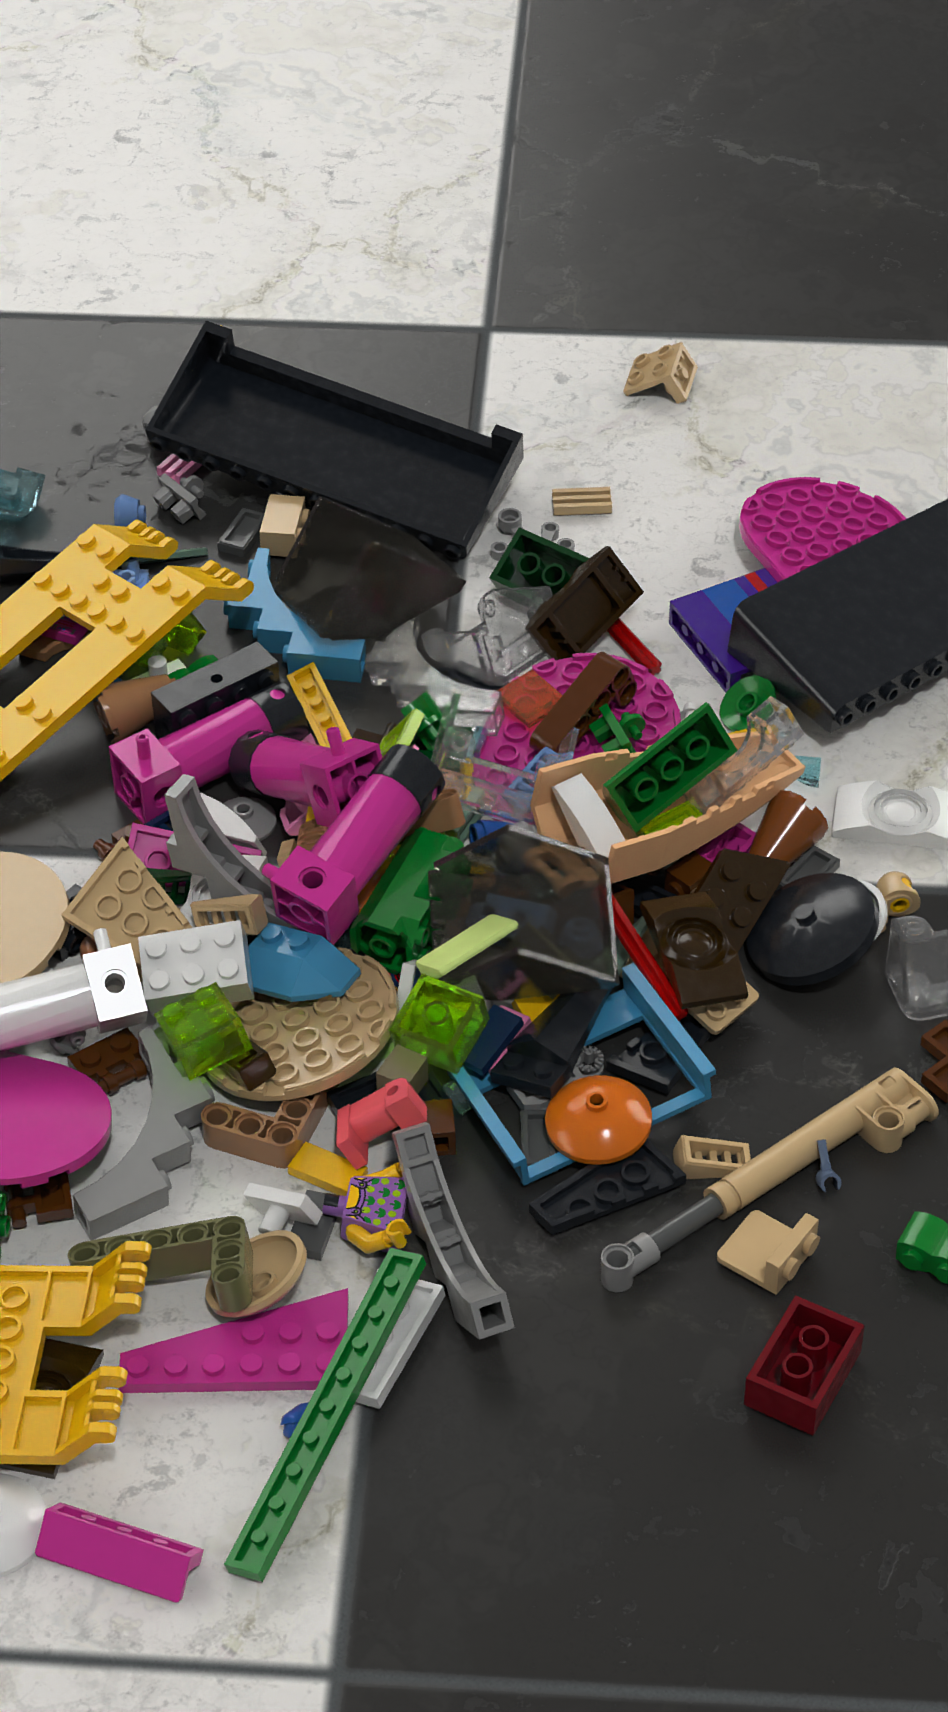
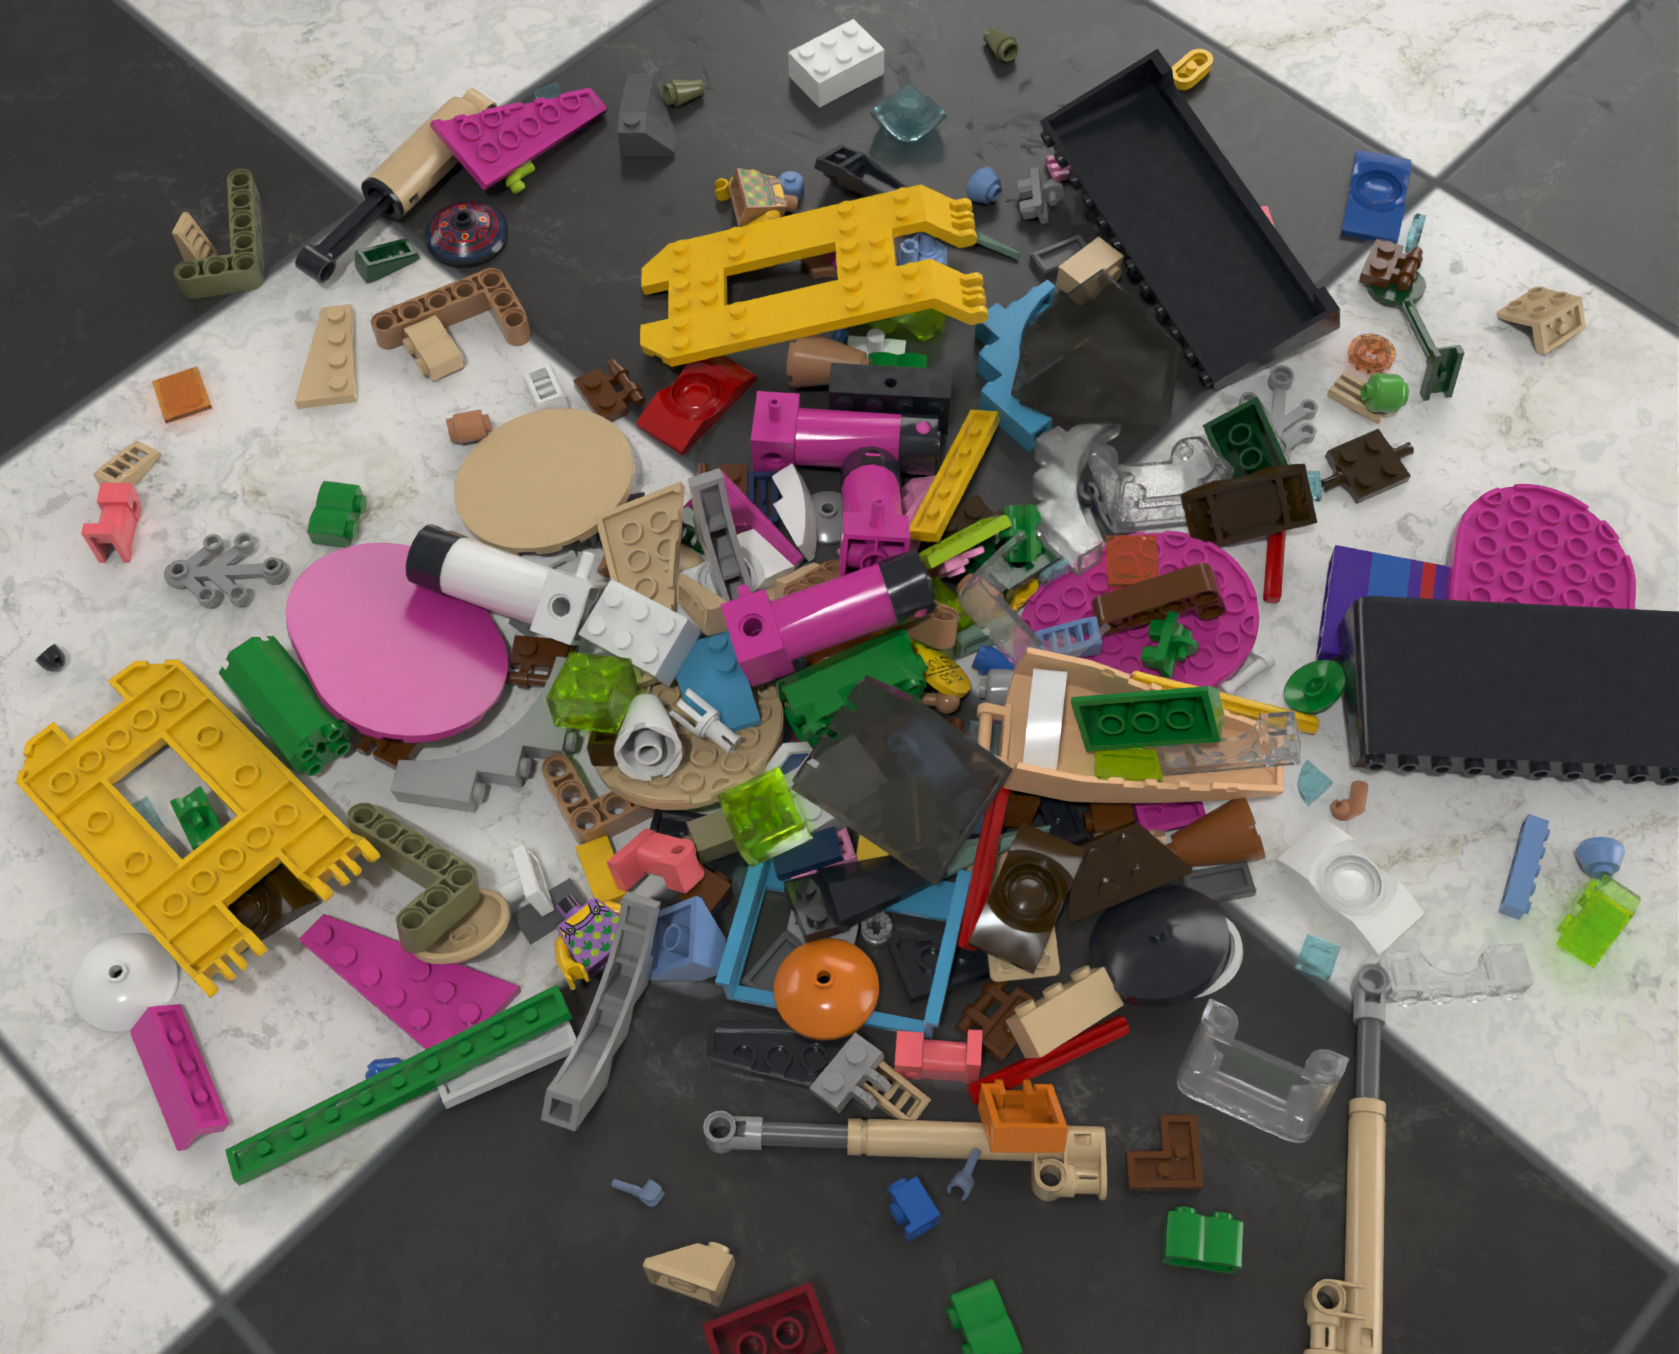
camera: 40 degrees right, 15 degrees up
(31, 406) = (1003, 45): none -> olive cone
(38, 805) = (695, 401): none -> red slope
(289, 1030) = (647, 740): none -> white cone
(318, 991) = (708, 724): none -> white arm
(453, 361) = (1376, 196): none -> blue slope
(465, 945) = (837, 765): yellowish green slope -> none
(466, 1161) = (686, 943): none -> medium blue slope
(510, 369) = (1415, 232): none -> clear light blue tile
(512, 401) = (1382, 264): none -> reddish brown plate
(542, 410) = (1441, 362): none -> dark green piece
(551, 467) = (1375, 345): none -> clear orange gear
(602, 483) = (1385, 393): none -> bright green head
(604, 1351) = (649, 1194): none -> sand blue hand
(637, 541) = (1367, 466): none -> dark brown plate
(675, 1156) = (847, 1074): none -> light grey hinge
(700, 1366) = (693, 1271): none -> tan slope
(734, 1107) = (938, 1059): none -> coral piece
(755, 1057) = (996, 1034): none -> reddish brown plate
(769, 1250) = (850, 1211): tan bracket -> none
(789, 1014) = (1063, 1011): none -> tan brick
(804, 1061) = (1071, 1049): none -> red axle
(814, 1202) = (912, 1207): none -> blue brick
(835, 1097) = (1022, 1118): none -> orange piece
(850, 763) = (1353, 805): none -> nougat arm
(898, 894) = (1266, 962): tan piece -> none
(924, 873) = (1318, 957): none -> clear light blue tile

